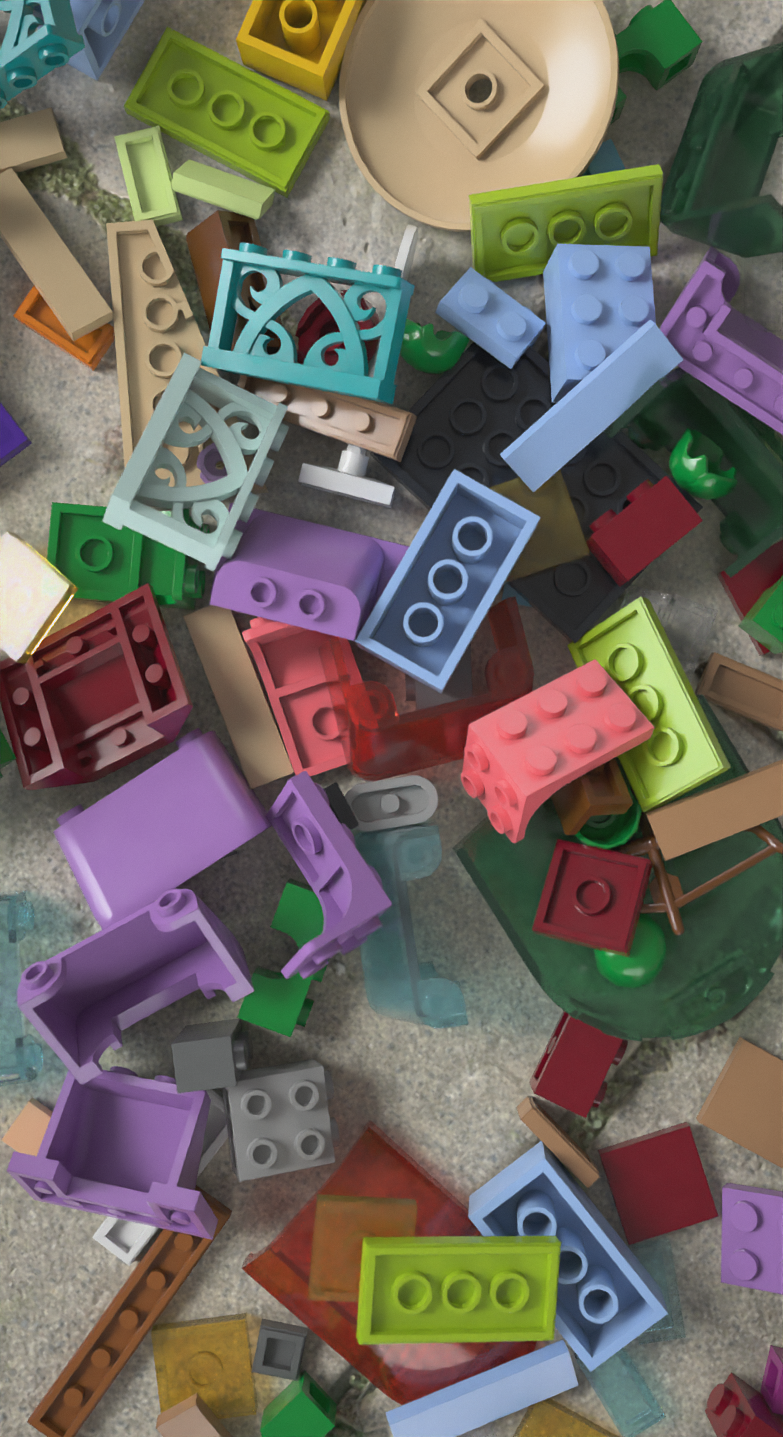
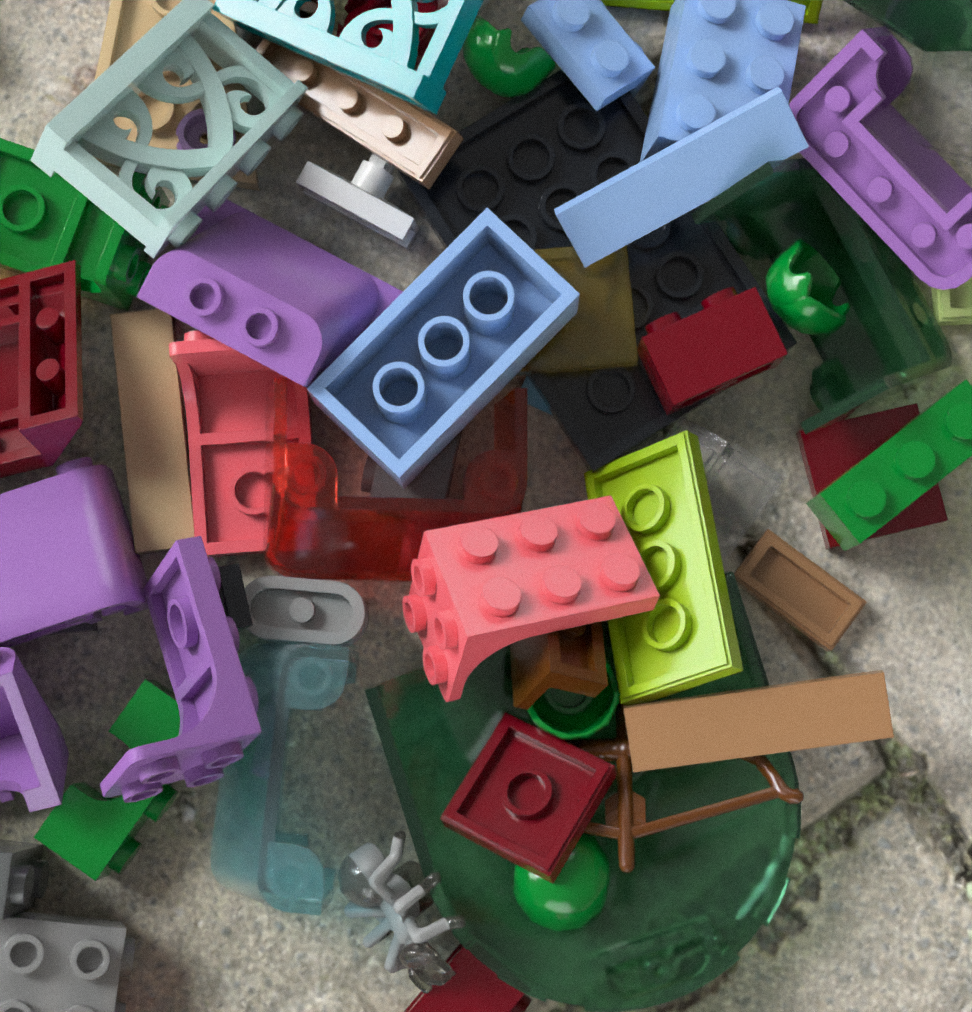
camera: 10 degrees right, 5 degrees down
(512, 993) = (396, 901): none -> animal

